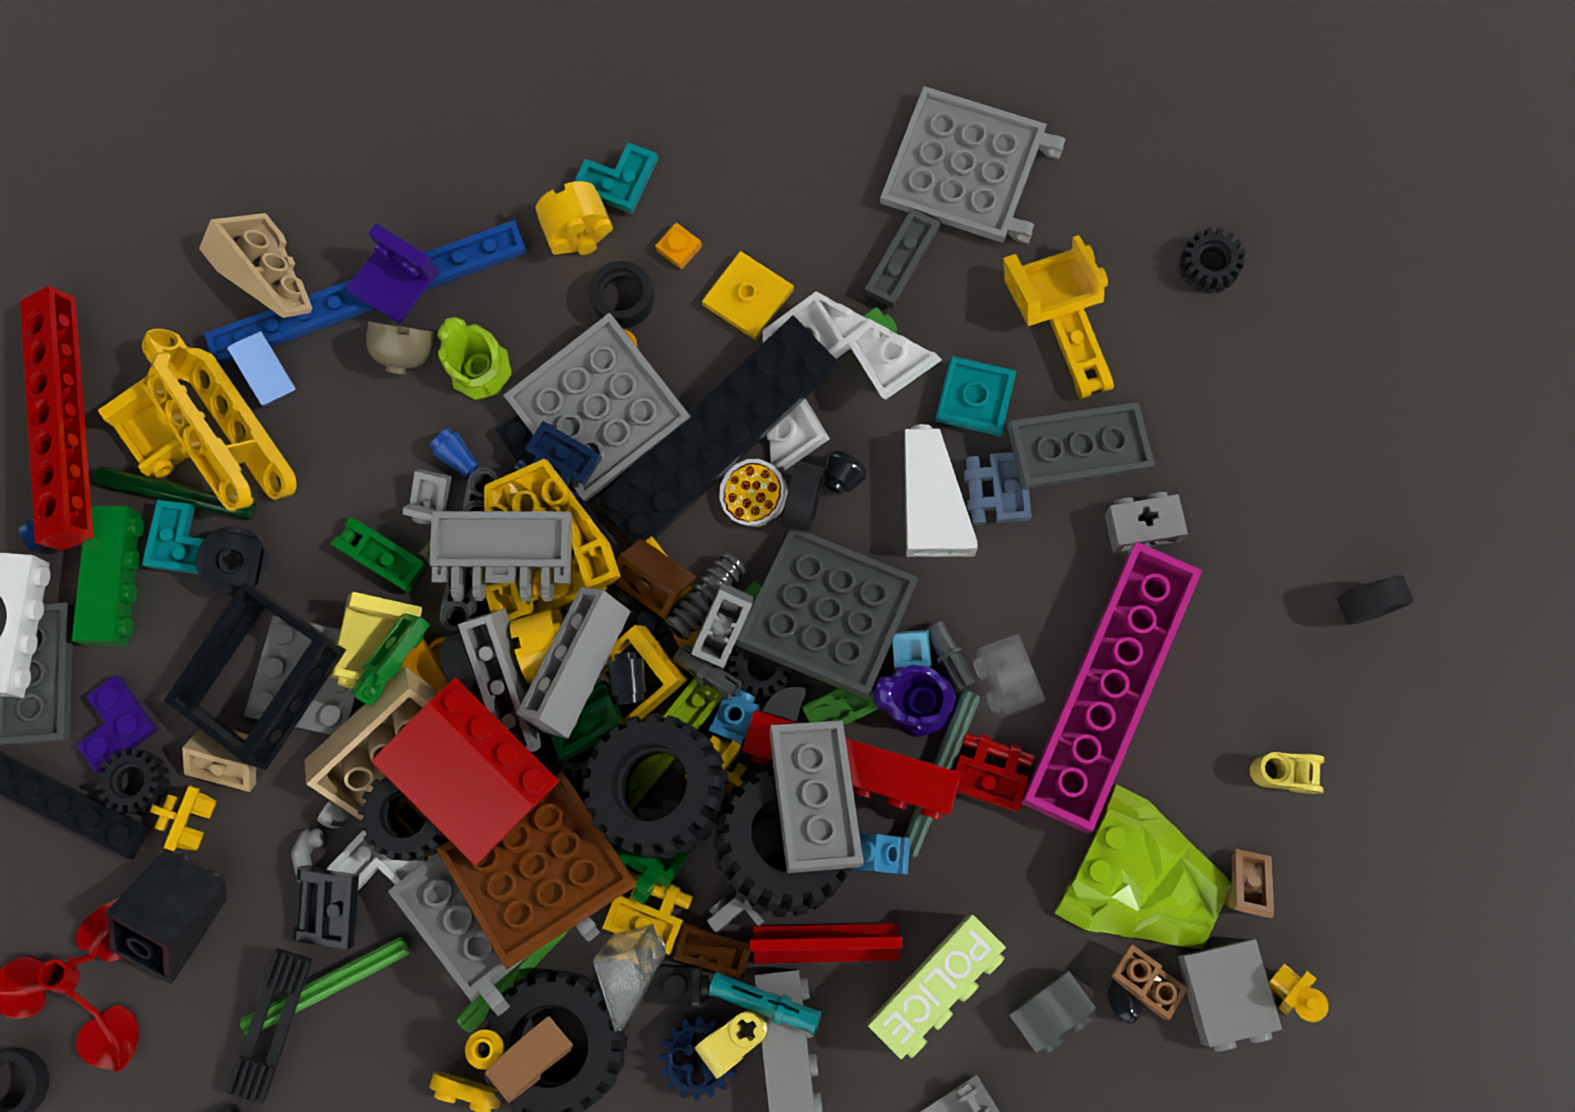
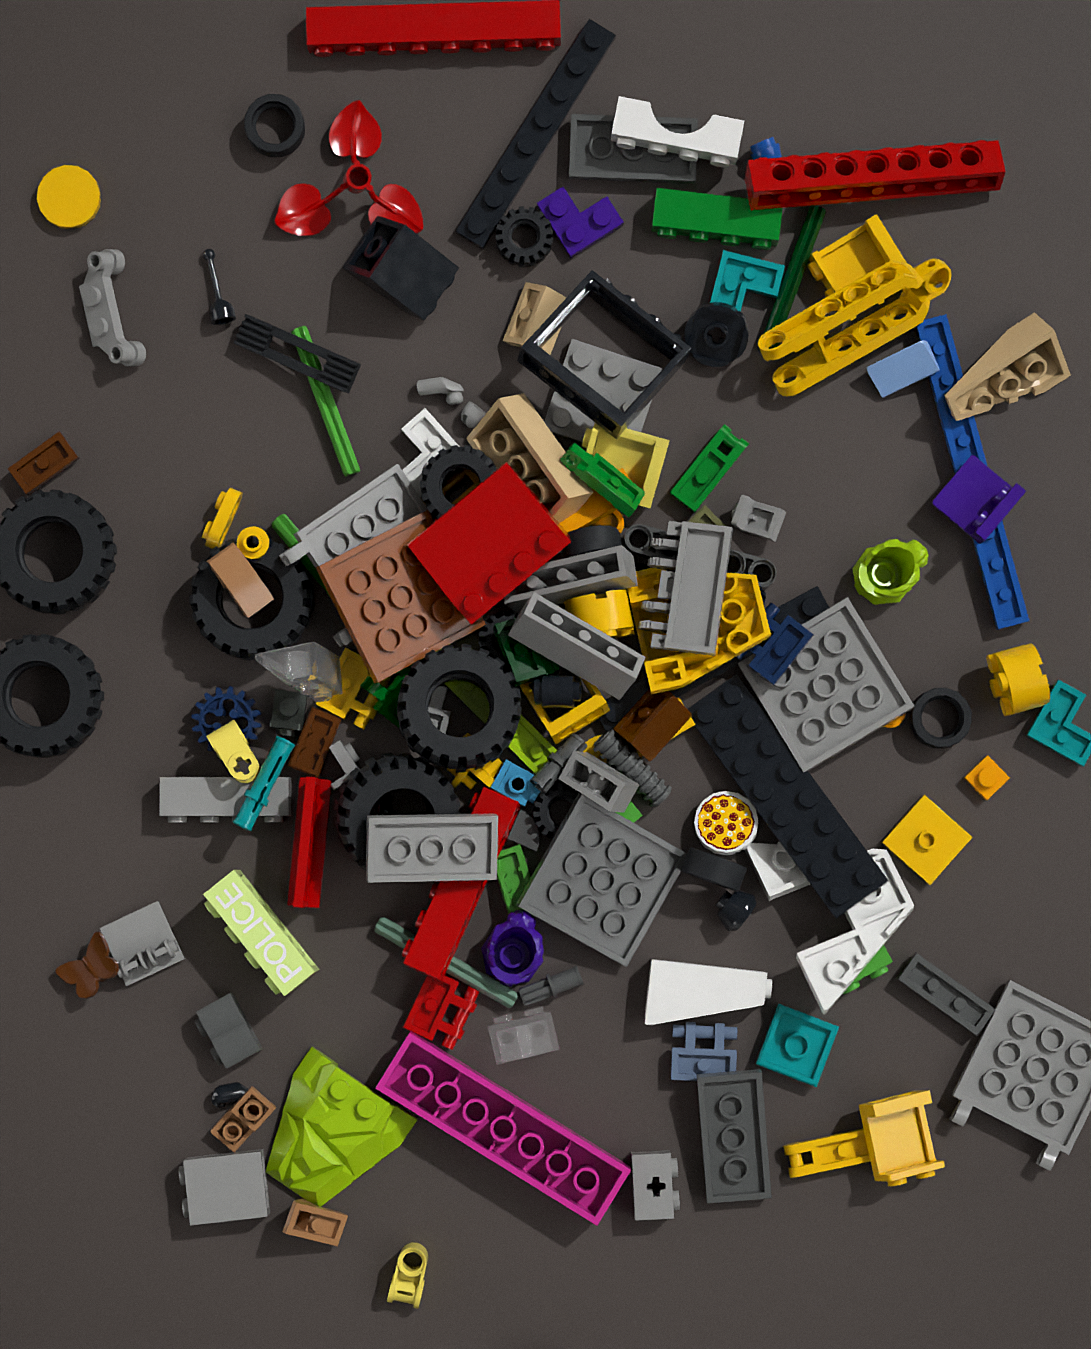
camera: 90 degrees right, 10 degrees up
(181, 835) = (497, 289): yellow hips -> none
(335, 907) = (390, 415): black plate -> none
(398, 345) = (911, 501): dark tan cylinder -> none
(453, 451) = (798, 546): blue cone -> none
(884, 854) = (379, 903): dark azure brick -> none
(911, 649) = (560, 951): medium azure plate -> none
(1221, 245) = (926, 1300): black tyre -> none
(1296, 993) = (216, 1245): yellow hips -> none

